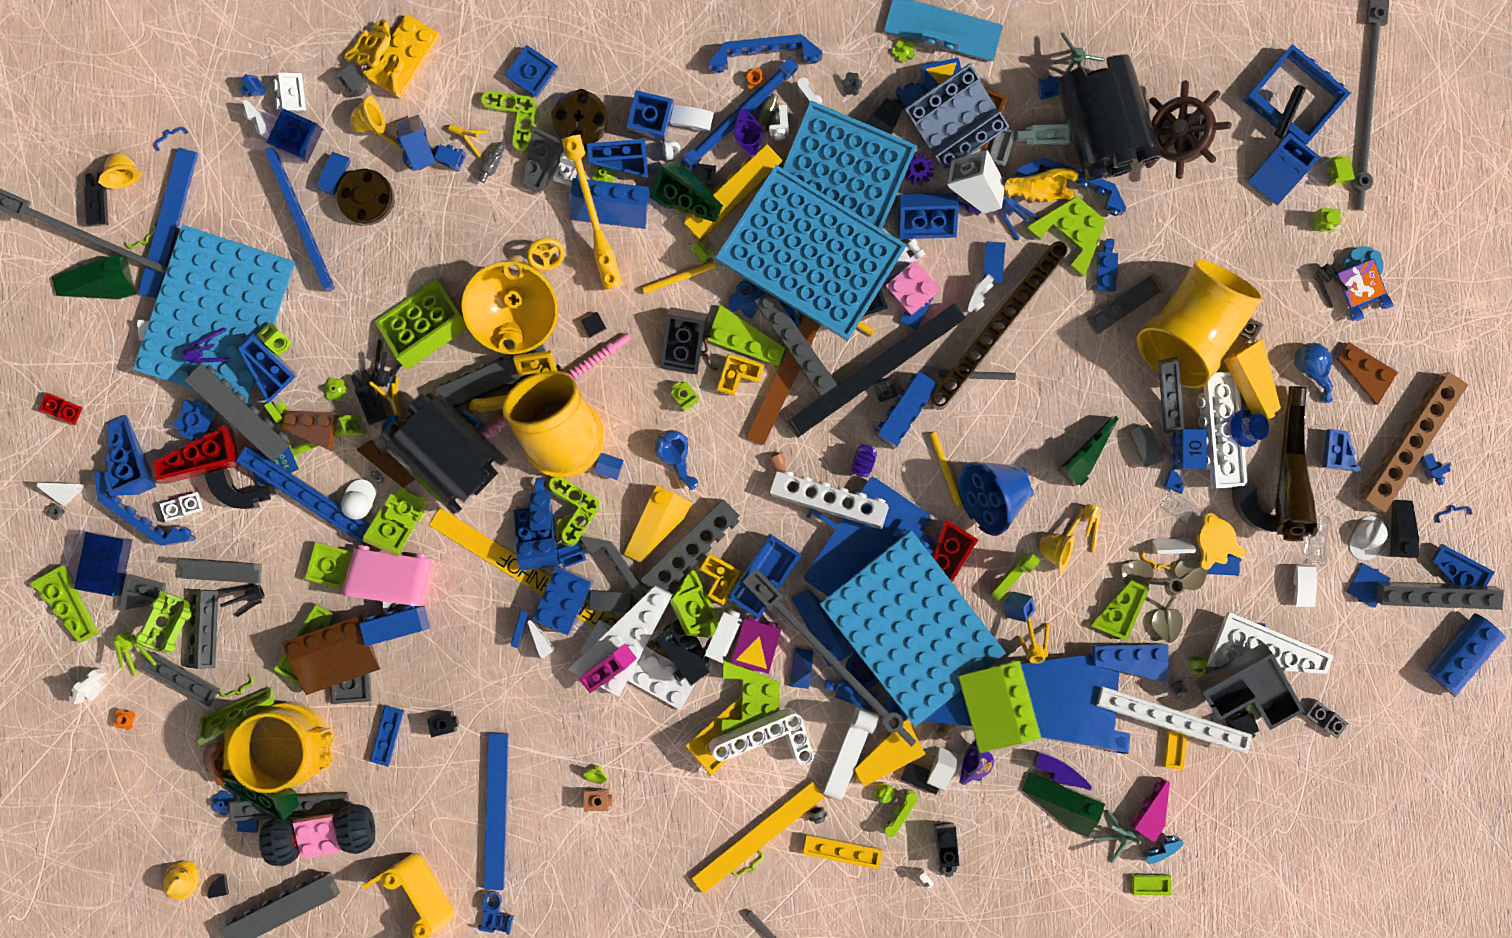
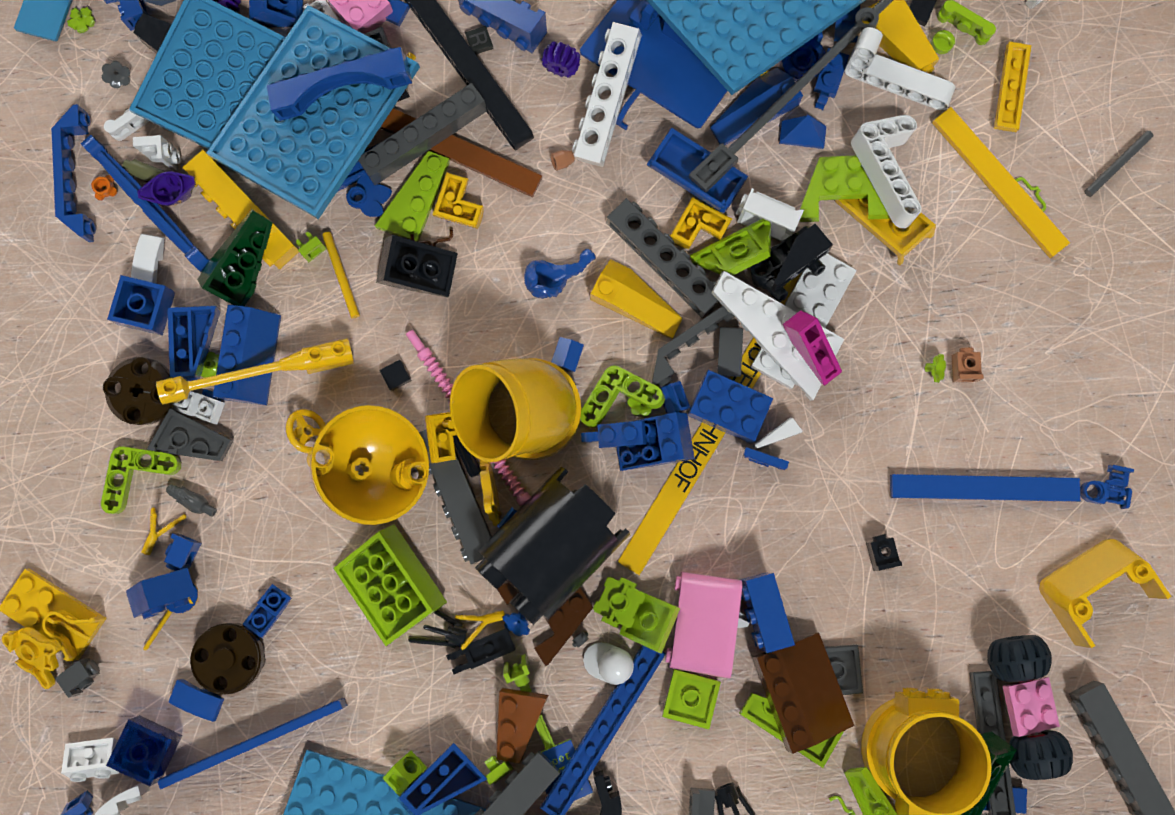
camera: 90 degrees left, 5 degrees down
(338, 392) = (476, 692): lime plant -> none
(368, 117) = (125, 657): yellow piece -> none
(387, 735) = (899, 623): blue tile -> none
(402, 226) = (267, 611): none -> blue slope
(531, 71) = (79, 452): blue plate -> none
(668, 150) = (186, 286): white tile -> none
(687, 402) = (491, 266): lime brick -> none
(706, 174) = (214, 241): black tile -> none
(756, 644) = (778, 178): magenta brick -> none
(817, 815) = (971, 114): dark grey plate -> none
(818, 236) = (293, 96): none -> blue arch

